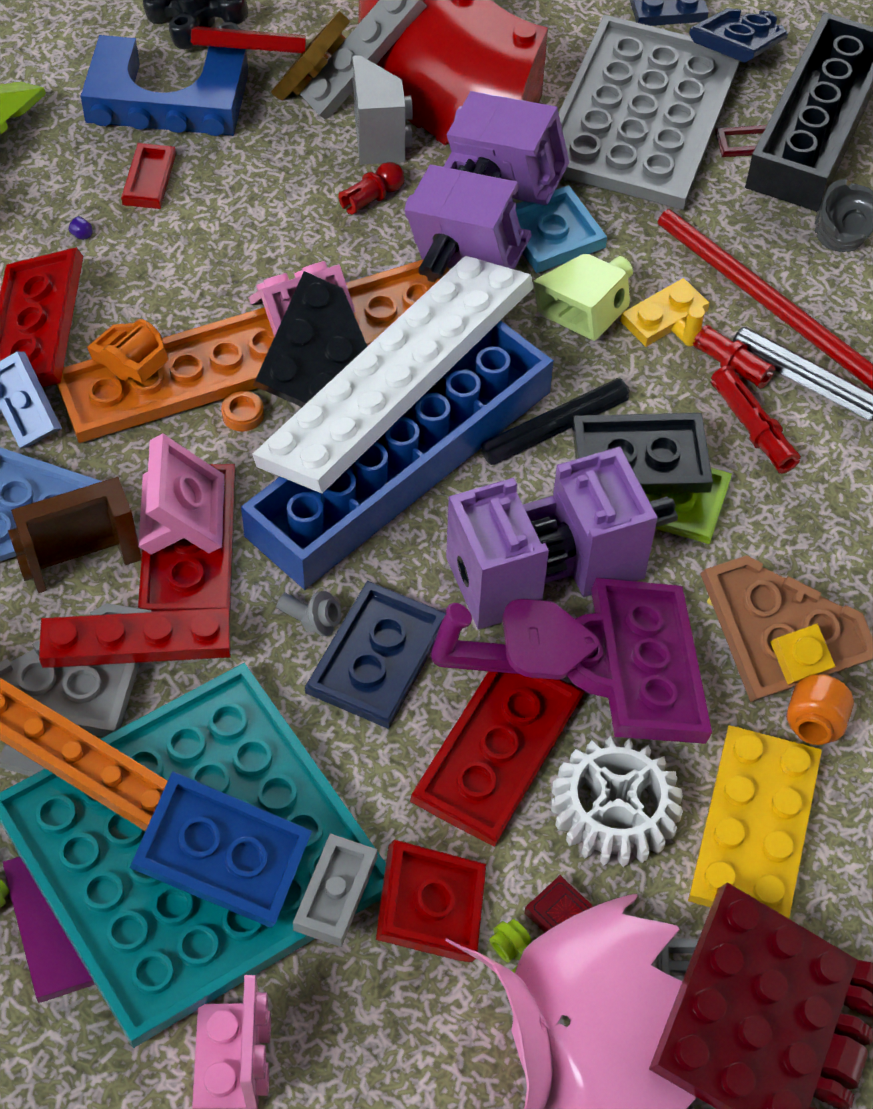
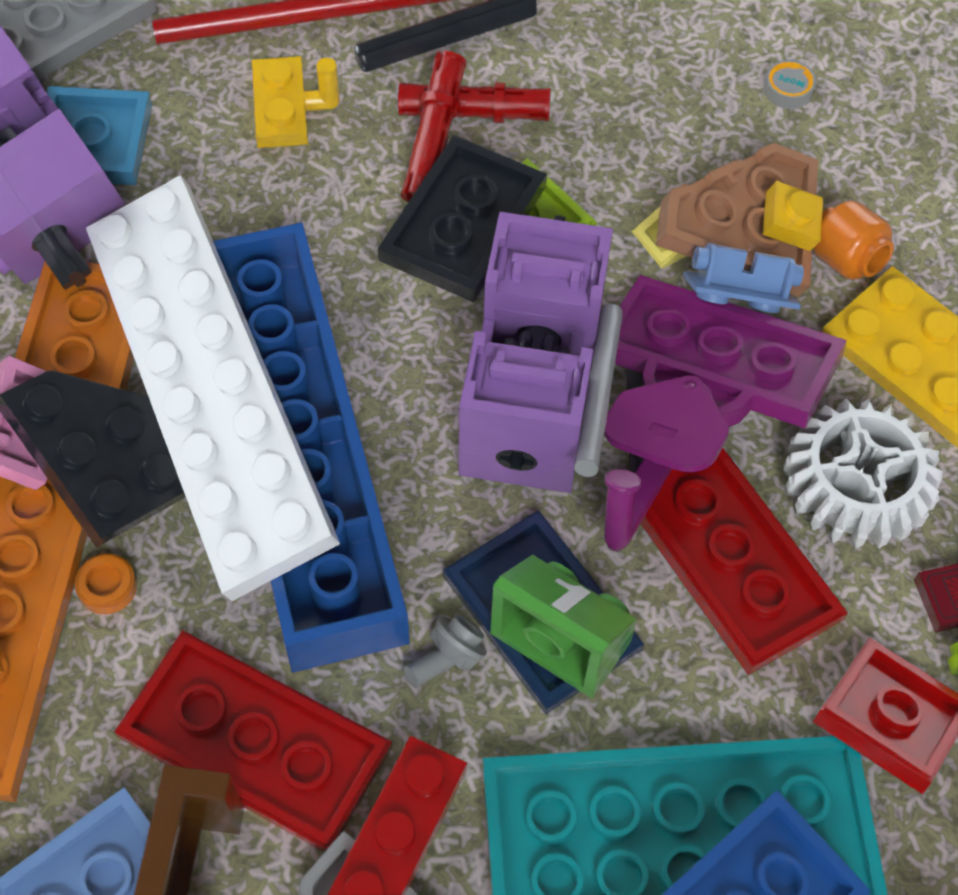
camera: 60 degrees left, 5 degrees up
(180, 499) = (215, 717): bright pink bracket -> none
(335, 890) = (854, 804): light grey plate -> none
(359, 651) = (560, 623): none -> bright green slope
(544, 586) = (598, 391): none -> light grey bar
(554, 421) = (351, 276): black axle -> none
(585, 294) = (214, 150): yellowish green torso -> none
(721, 395) = (438, 109): none -> red pin
(725, 664) = (723, 277): none -> medium blue hinge
(734, 355) = (385, 74): red pin -> none

